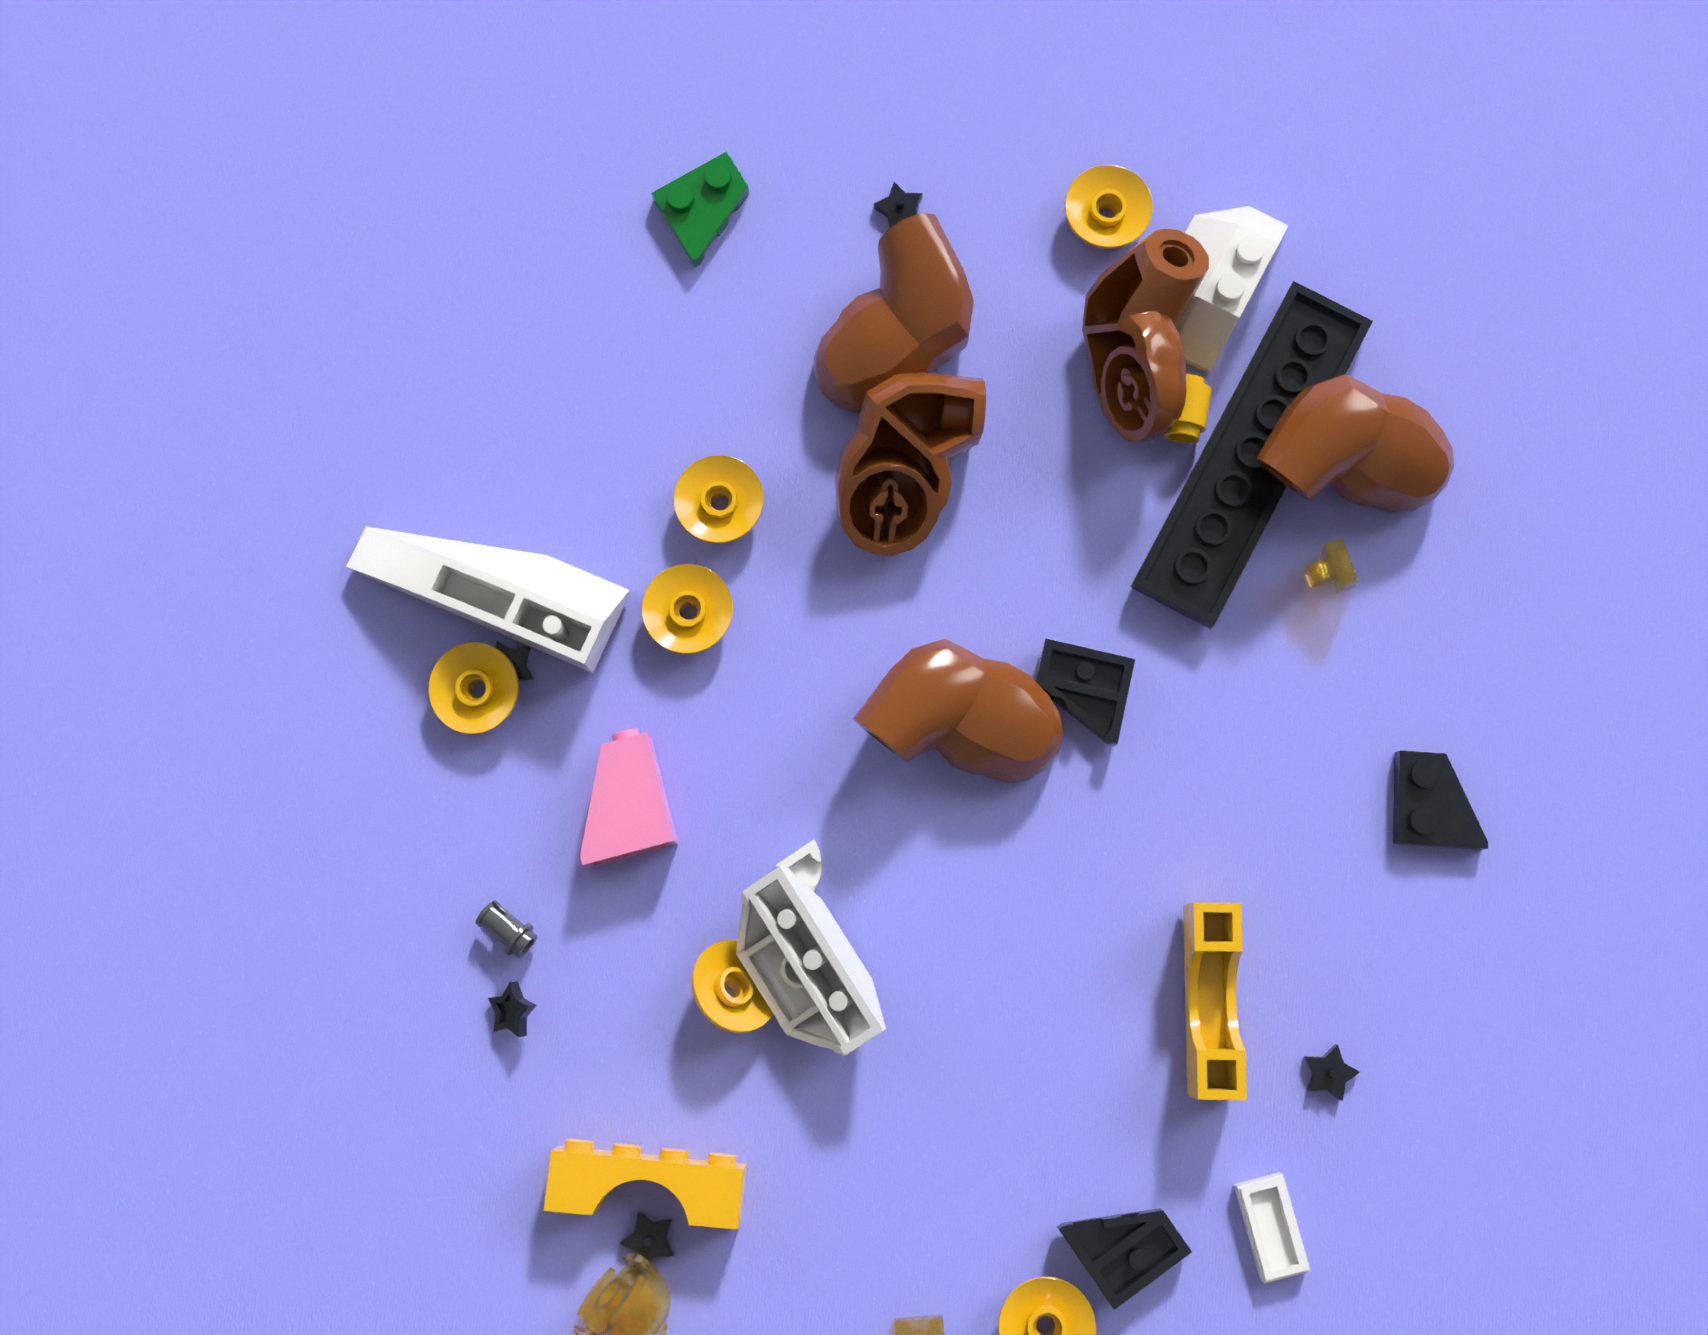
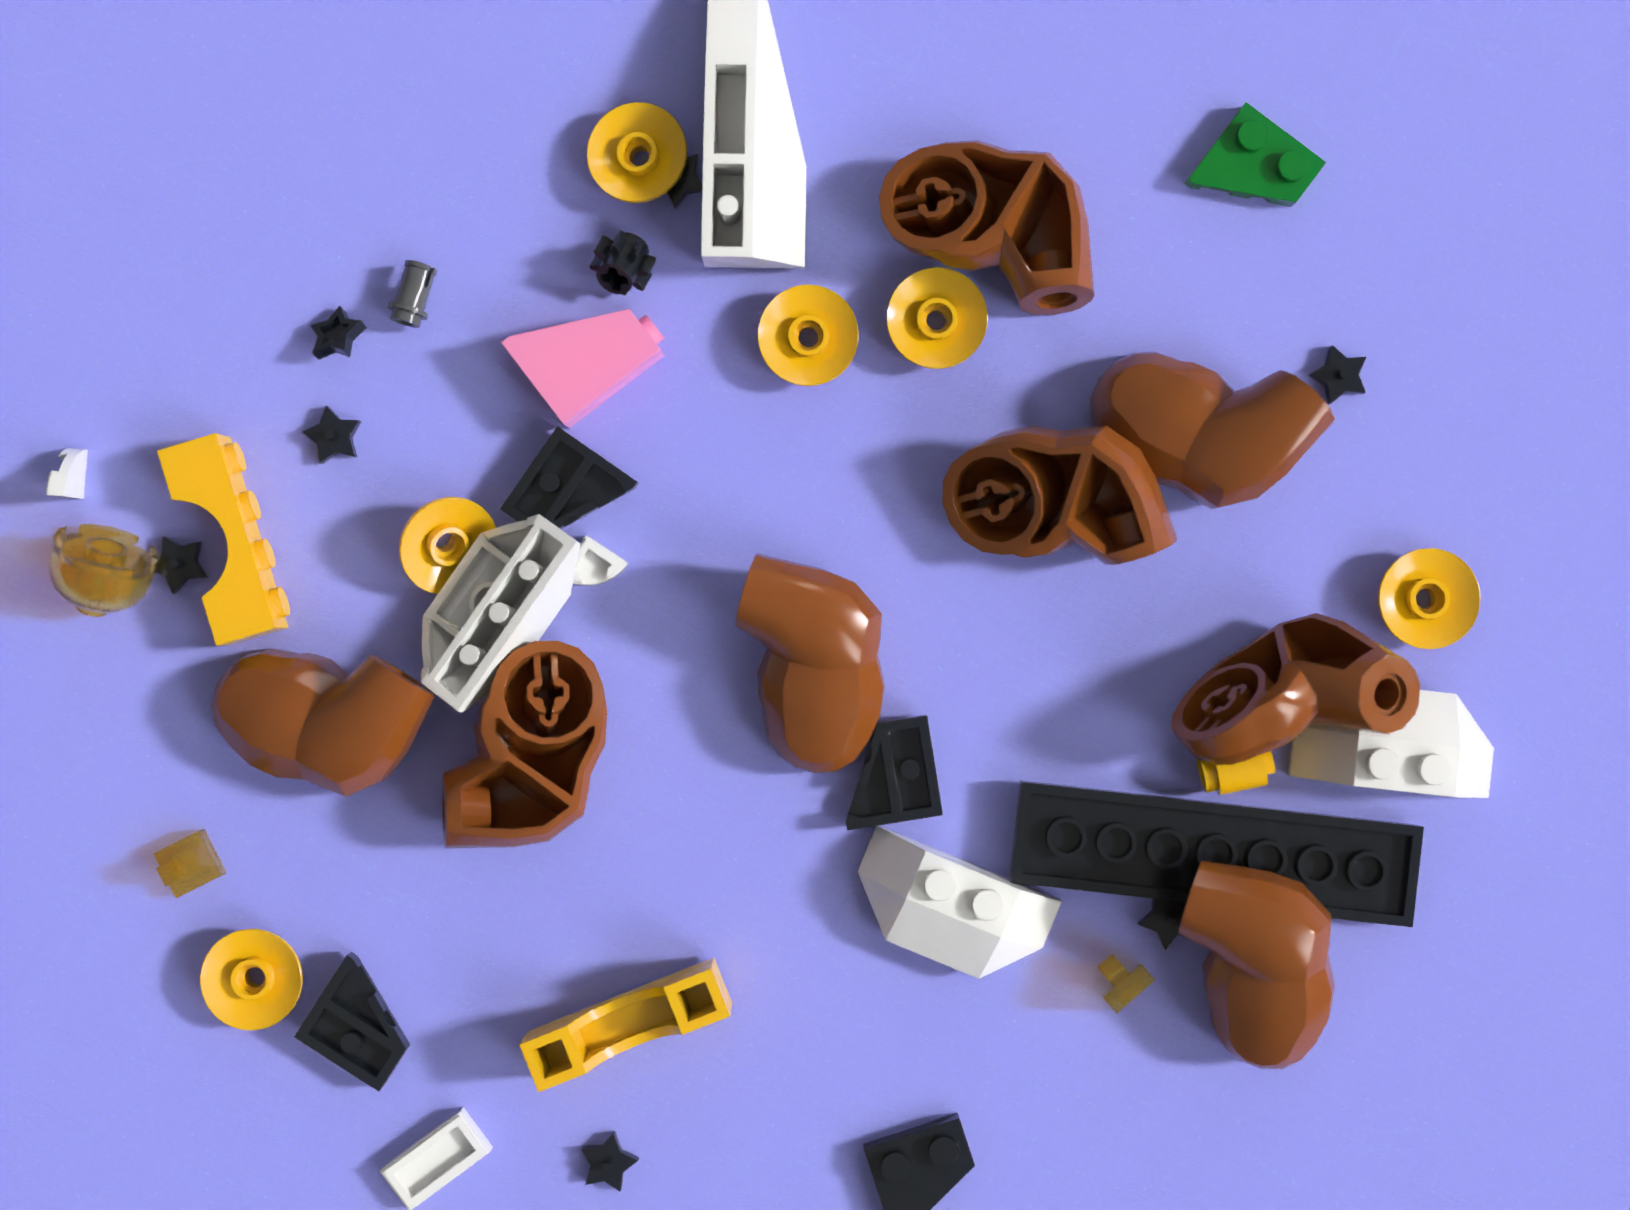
camera: 65 degrees right, 10 degrees up
(534, 1308) = (70, 479): none -> white tile
(560, 737) = (622, 263): none -> black gear
(597, 1051) = (333, 435): none -> black piece
(650, 414) = (995, 208): none -> dark orange piece
(724, 862) = (566, 483): none -> black wing
(841, 1167) = (316, 721): none -> dark orange piece
(947, 981) = (534, 751): none -> dark orange piece
(1214, 686) = (951, 906): none -> white wedge
(1293, 514) = (1164, 919): none -> black piece

